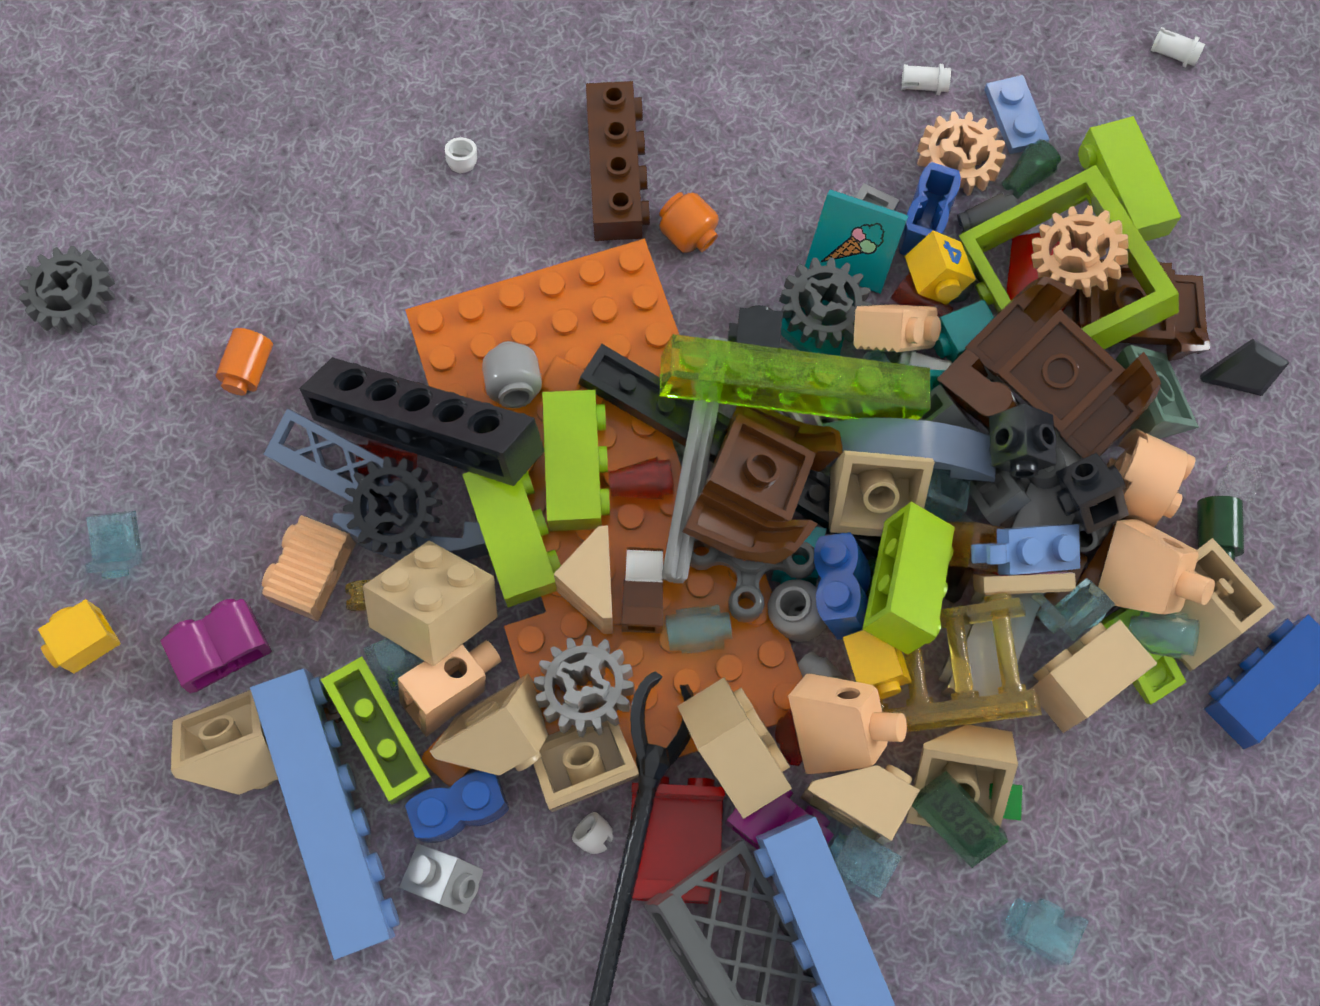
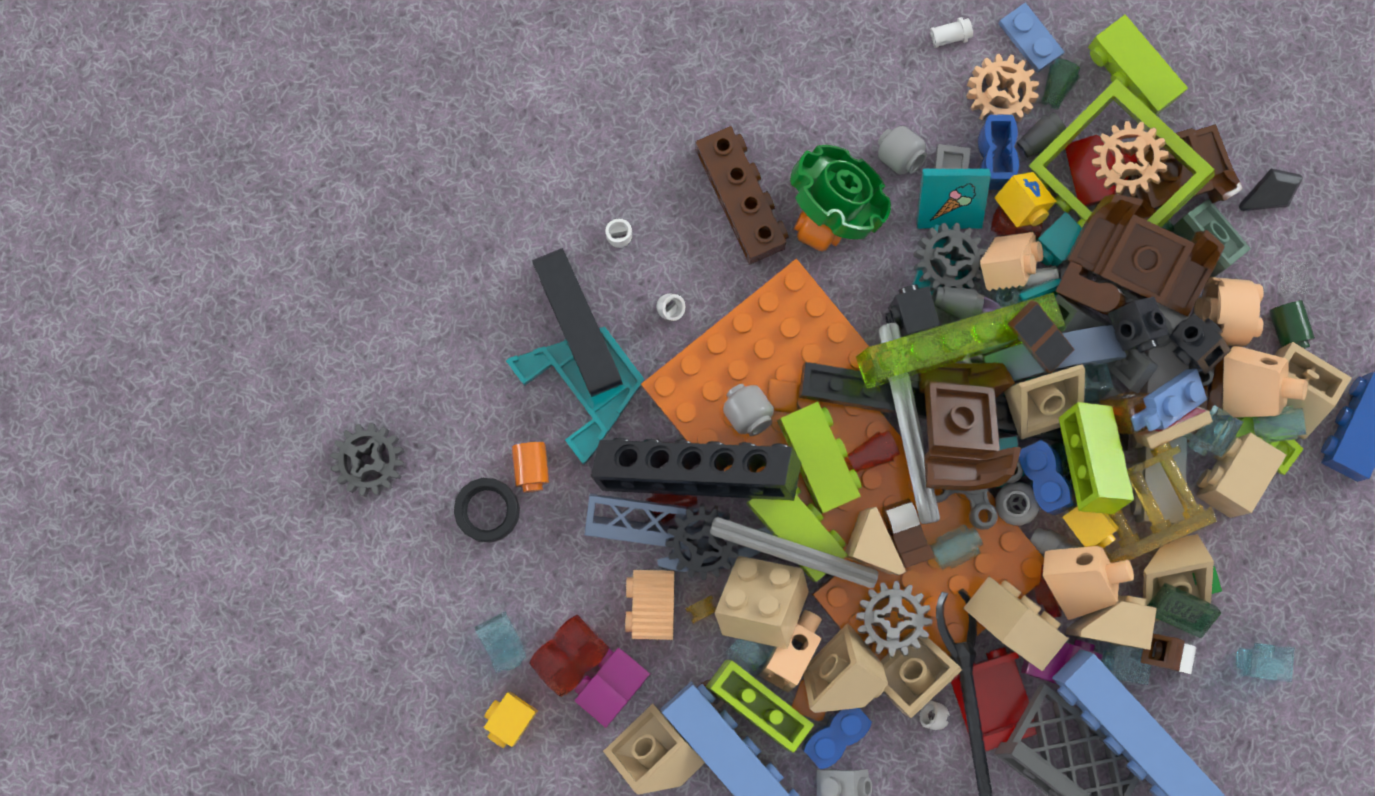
camera: 20 degrees left, 10 degrees up
(153, 368) = (471, 490): none -> black tyre
(171, 589) = (569, 655): none -> clear red brick
(365, 224) = (577, 322): none -> black beam
(365, 291) = (603, 408): none -> teal wing
(486, 258) = (674, 311): none -> white hinge
(490, 550) = (794, 552): none -> light grey axle
(726, 187) = (840, 192): none -> green piece
(809, 339) = (958, 301): none -> dark grey cone
(817, 172) = (902, 150): none -> light grey head
(893, 406) = (1040, 336): none -> black tile
(924, 867) = (1170, 654): none -> reddish brown leg

